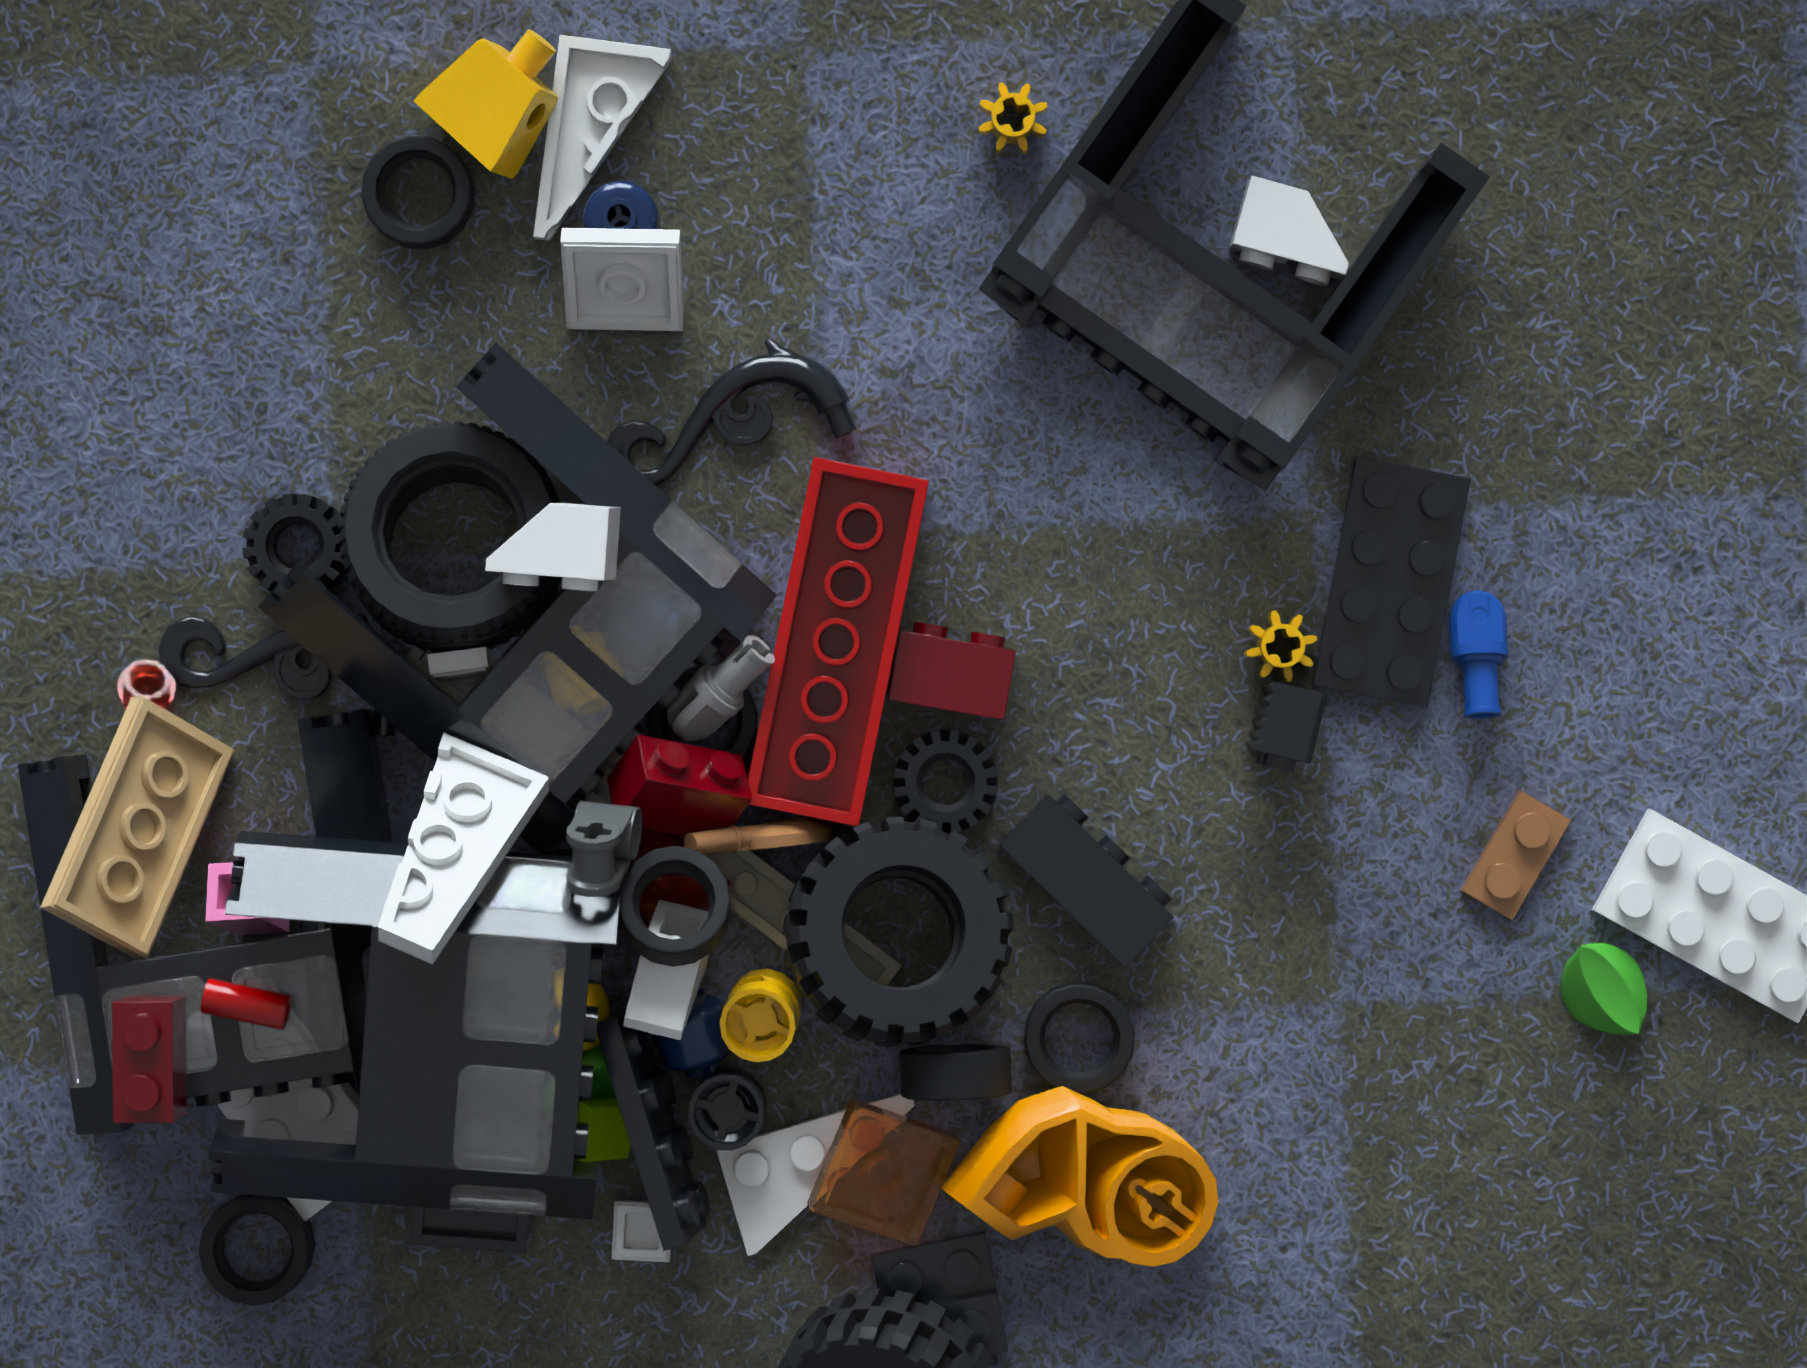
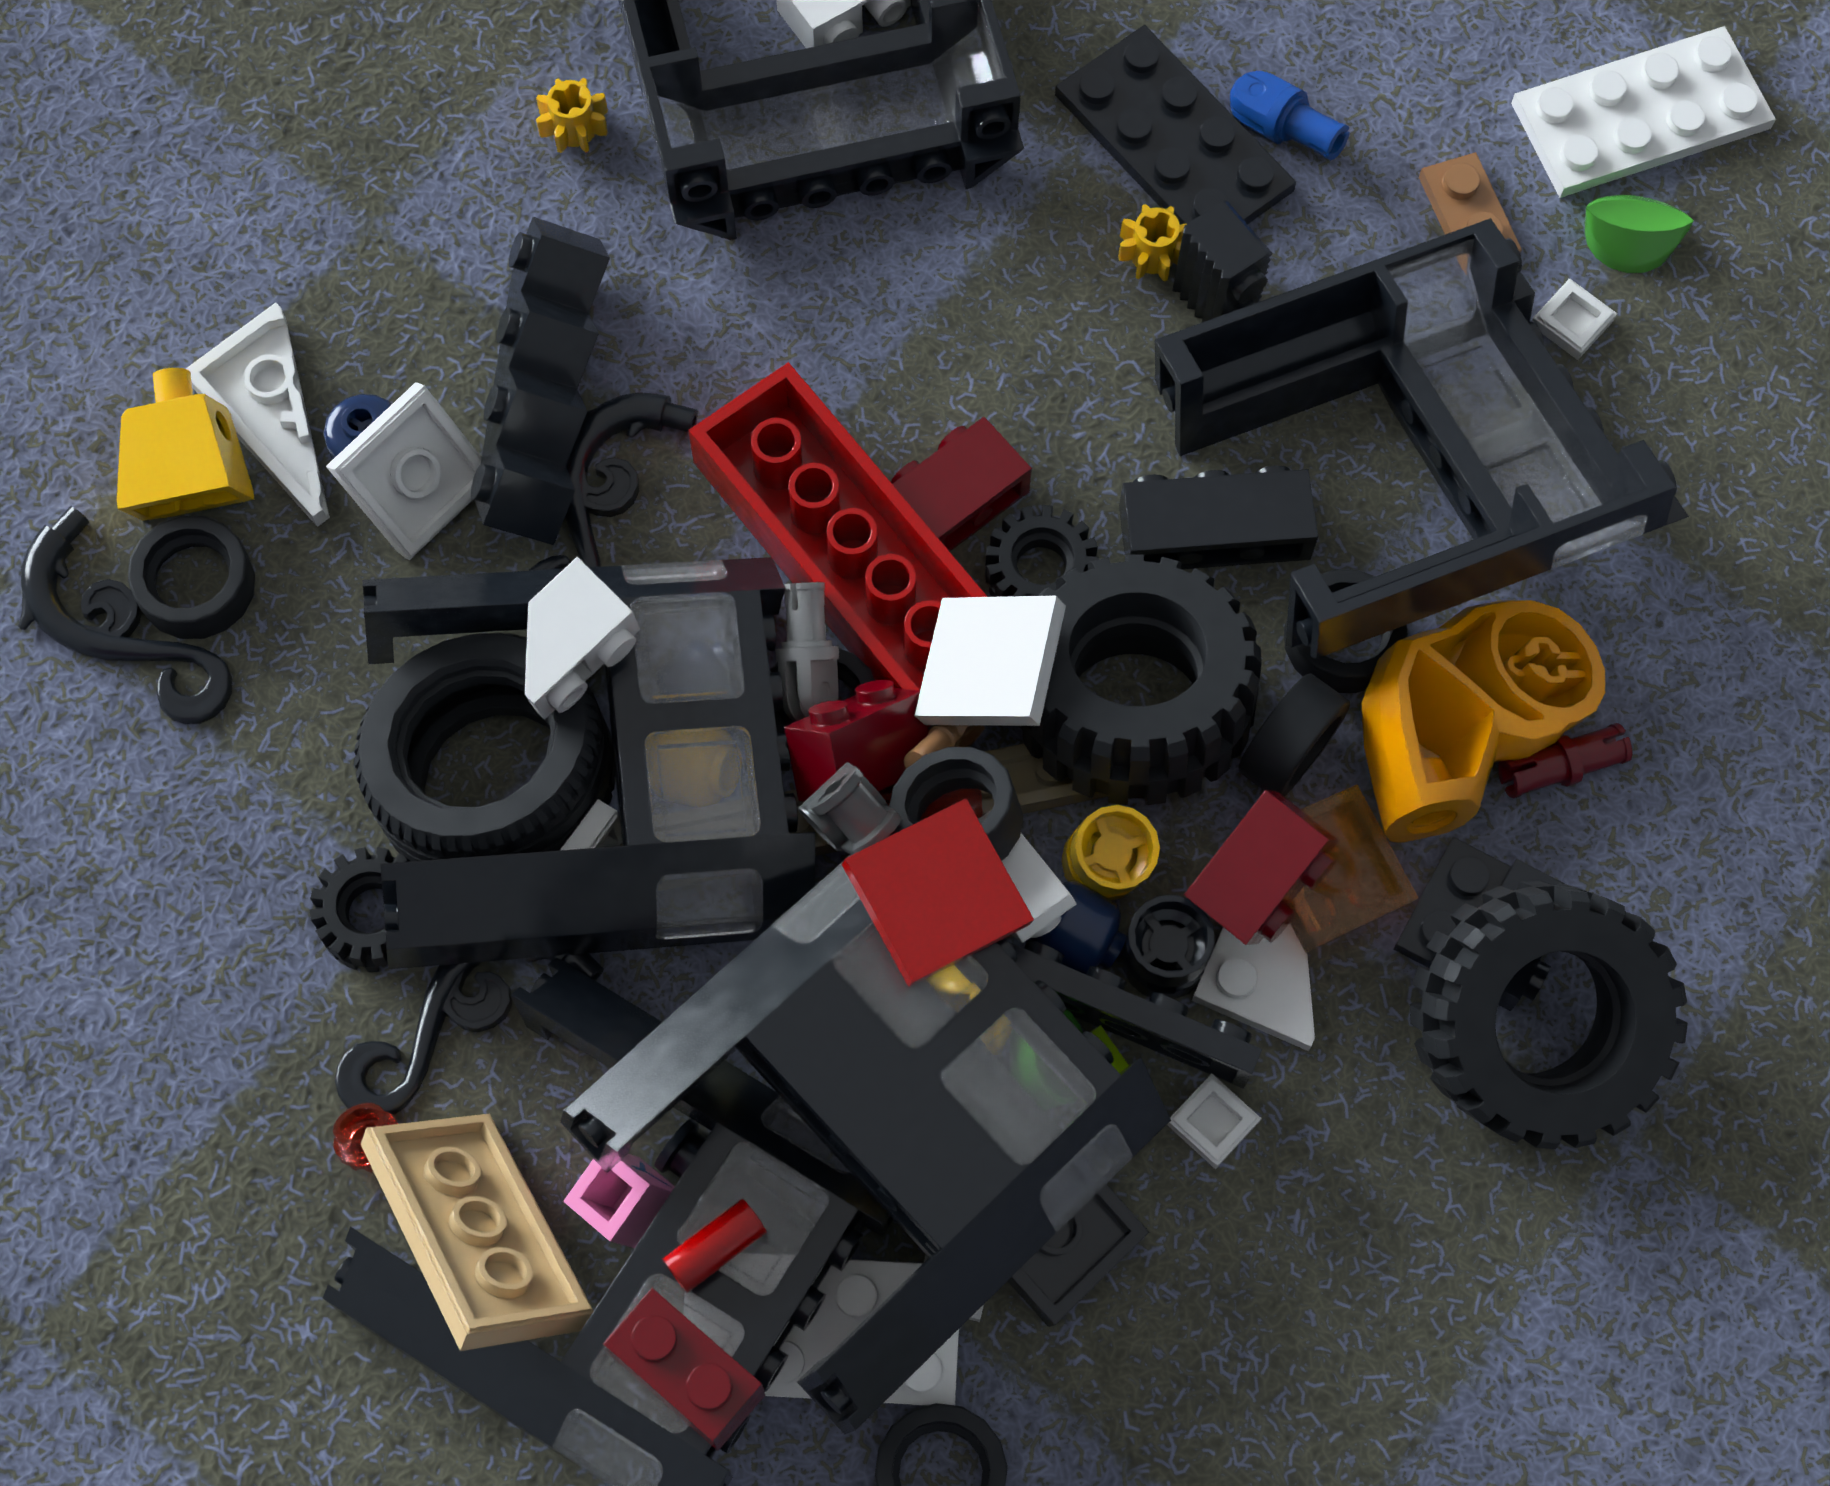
camera: 50 degrees left, 20 degrees down
(311, 101) = (112, 639): none -> black plant
(462, 833) = (740, 922): white wing -> none
(577, 965) = (937, 892): none -> red tile
(786, 290) = (535, 393): none -> black brick
(806, 834) = (990, 661): none -> white tile
(823, 1139) = (1264, 869): none -> dark red brick
(1116, 1273) = (1566, 761): none -> dark red pin
(1331, 1015) = (1473, 391): none -> black piece
(1488, 1001) = (1574, 319): none -> white tile

